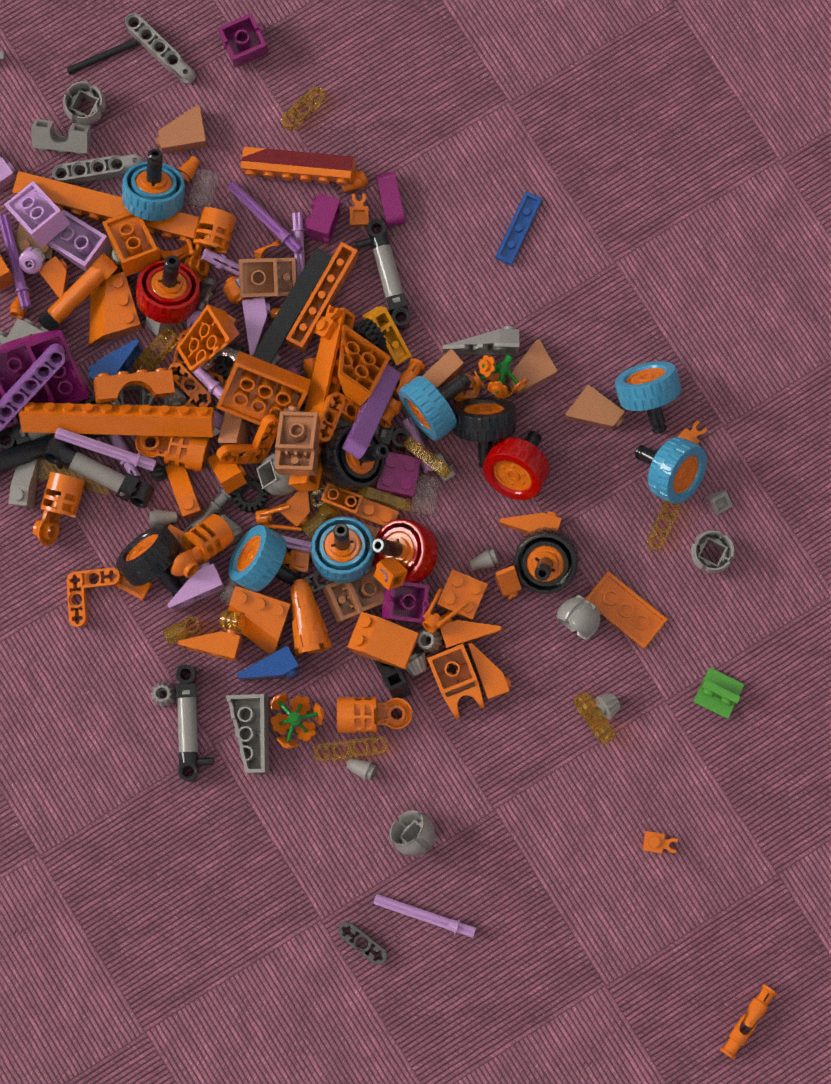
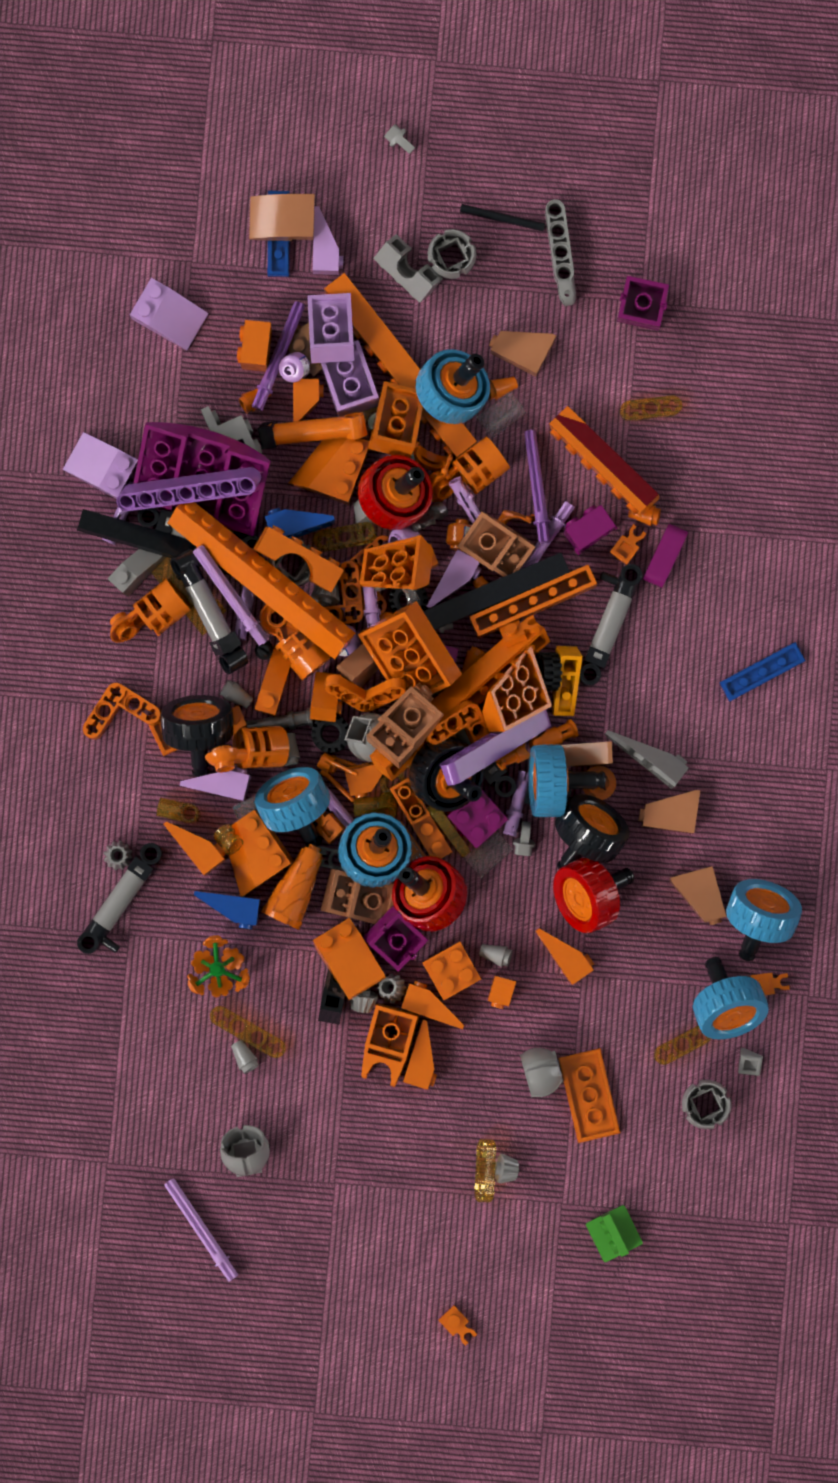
camera: 30 degrees right, 5 degrees up
(90, 165) = (448, 342): light grey piece -> none
(251, 726) = (172, 948): light grey wedge -> none
(367, 713) = (285, 1012): orange cylinder -> none
(377, 947) = (137, 1226): dark grey beam -> none
(390, 573) = (400, 906): orange brick -> none
(427, 457) = (515, 822): clear yellow beam -> none
(434, 621) = (407, 976): orange plant -> none
(498, 372) = (634, 787): orange plant -> none
(546, 560) = (550, 998): black wheel -> none

